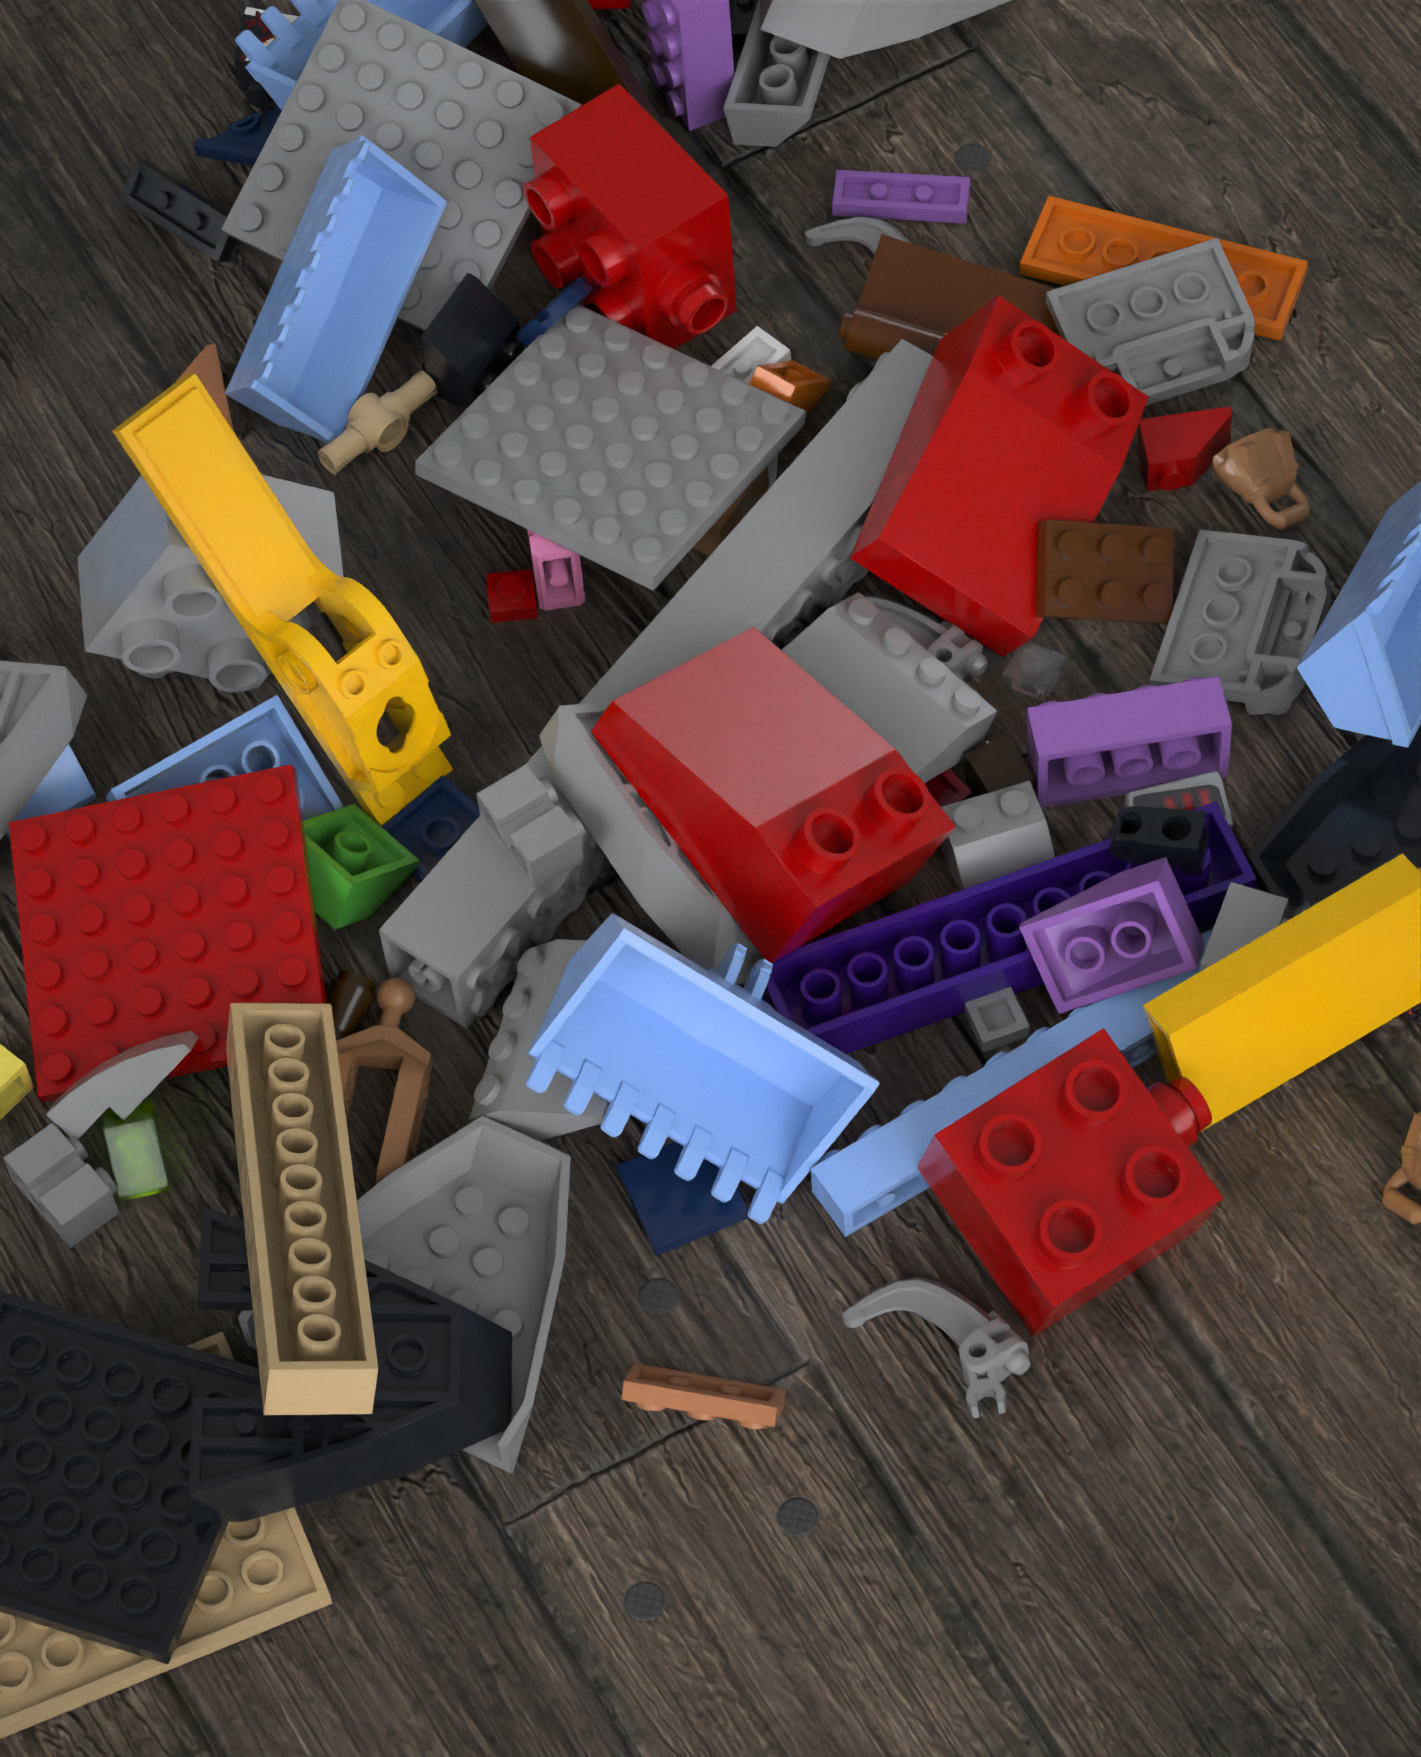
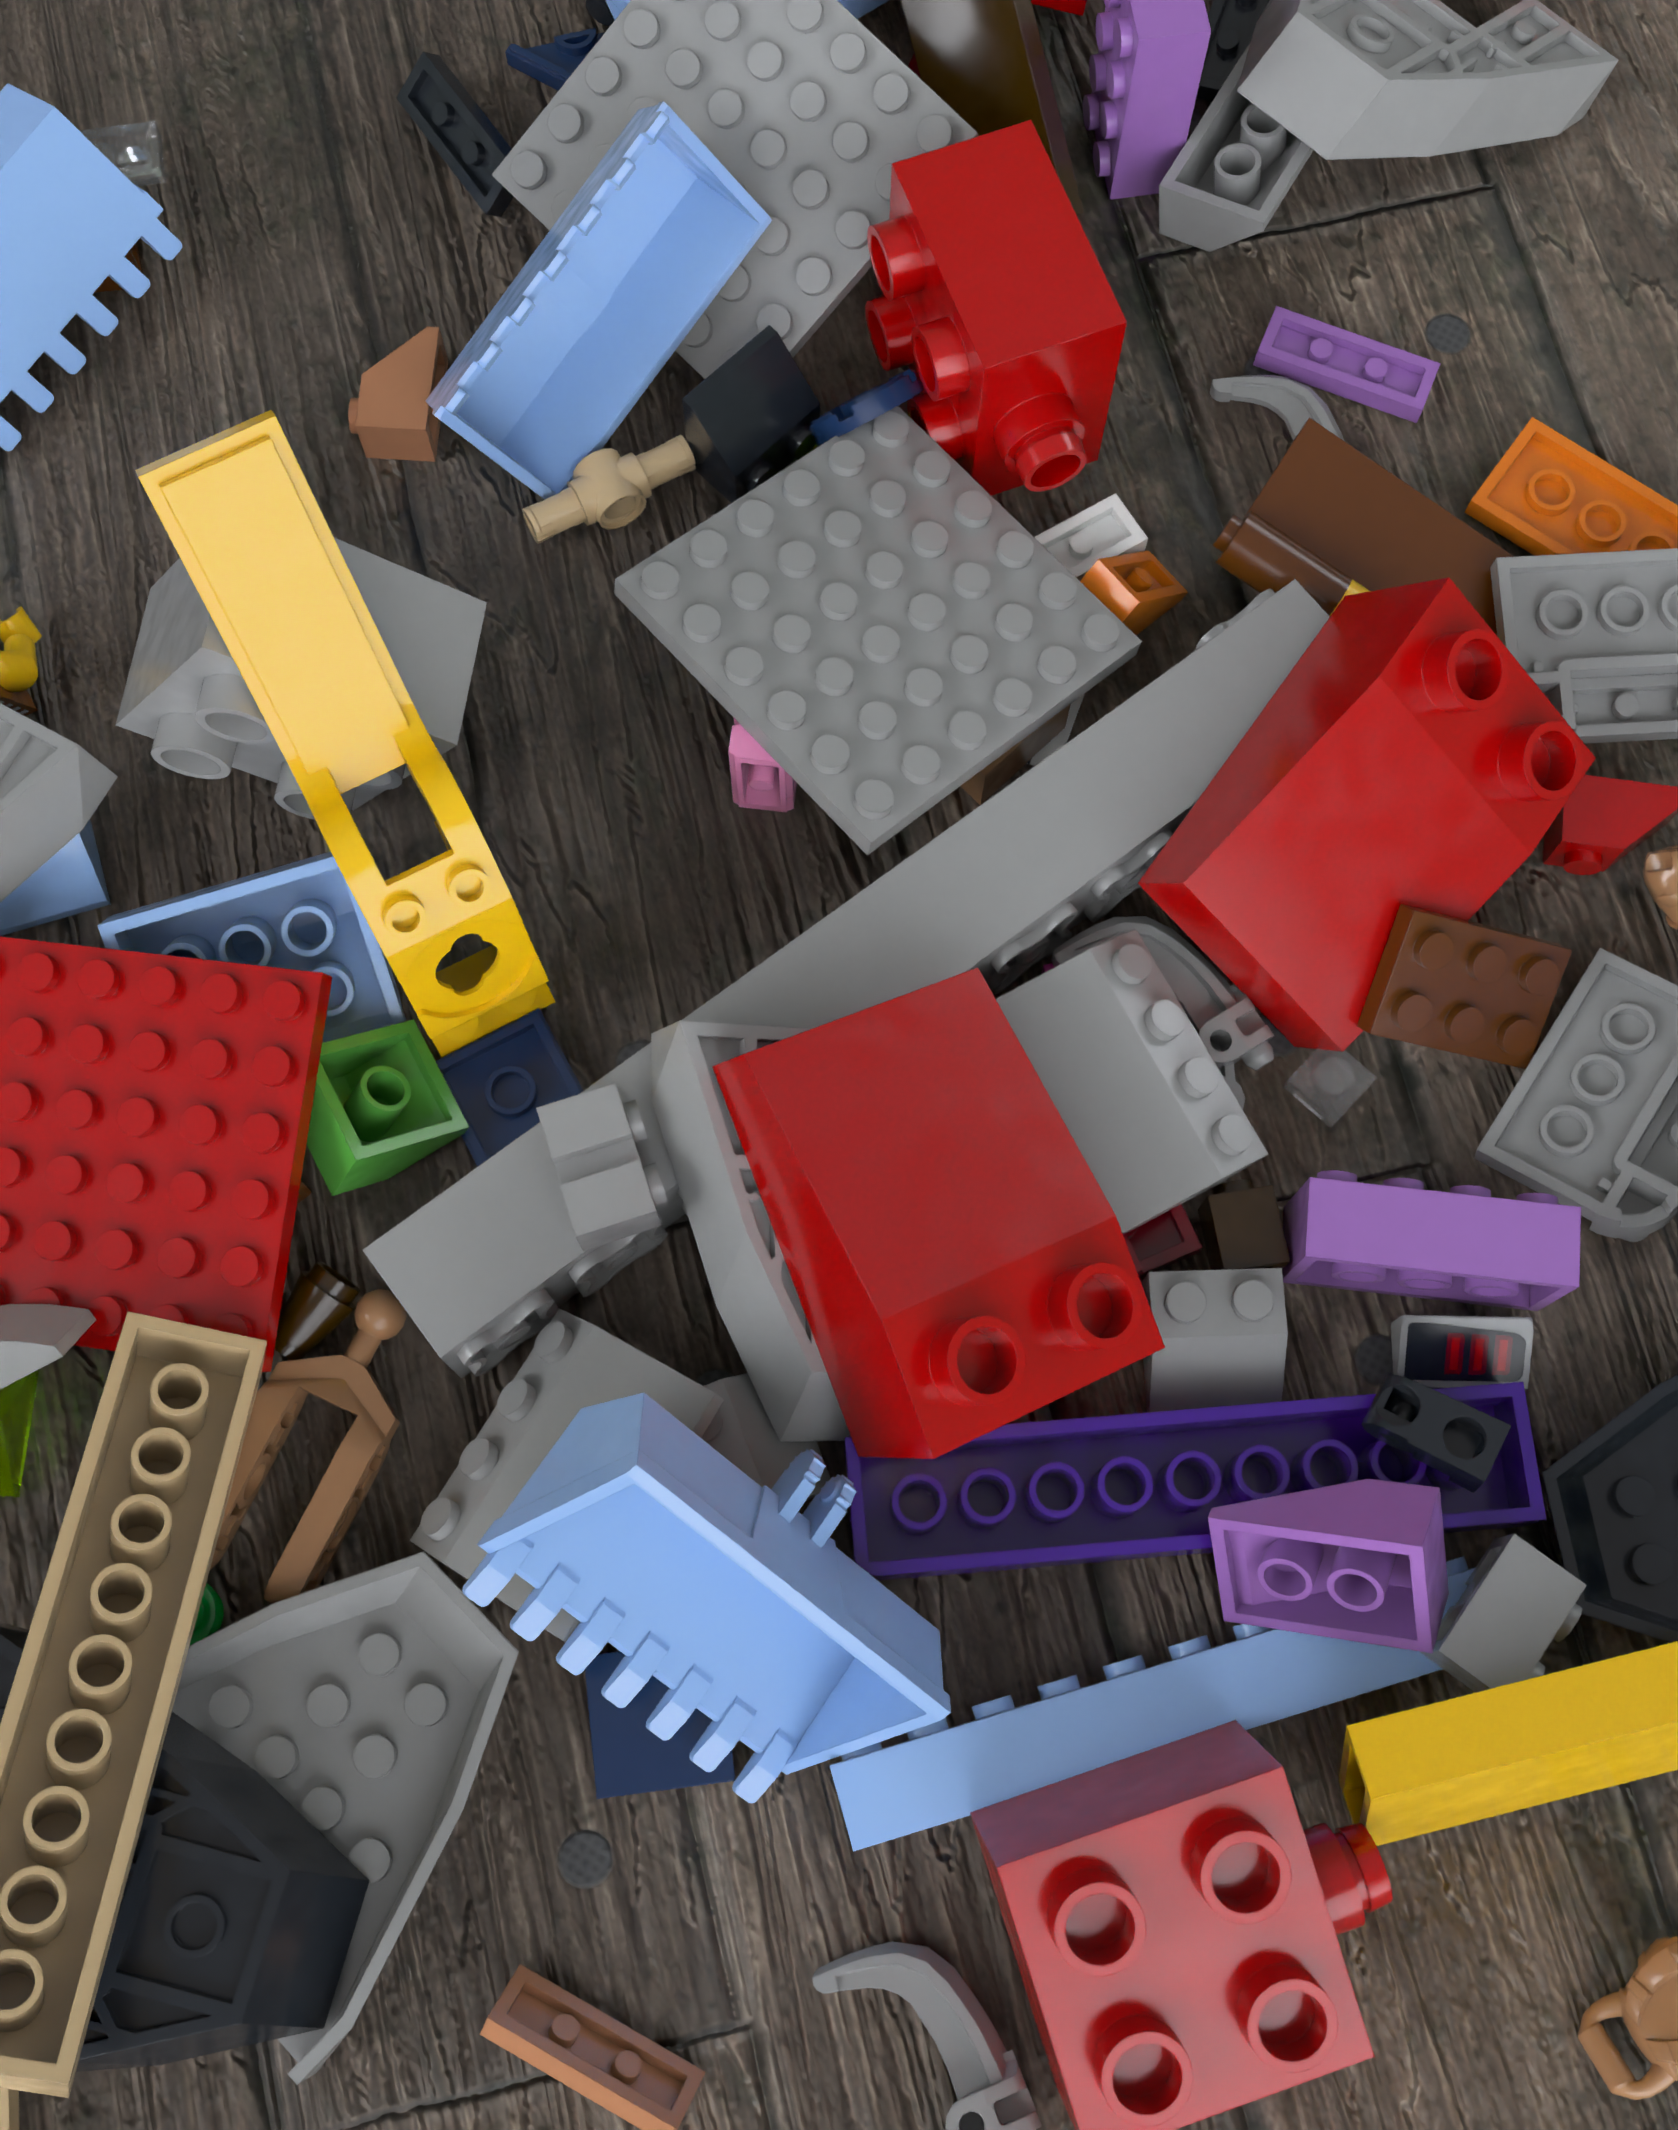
camera: 10 degrees right, 15 degrees up
(511, 596) = (700, 777): red plate -> none
(997, 1019) = (1140, 1593): light grey plate -> none

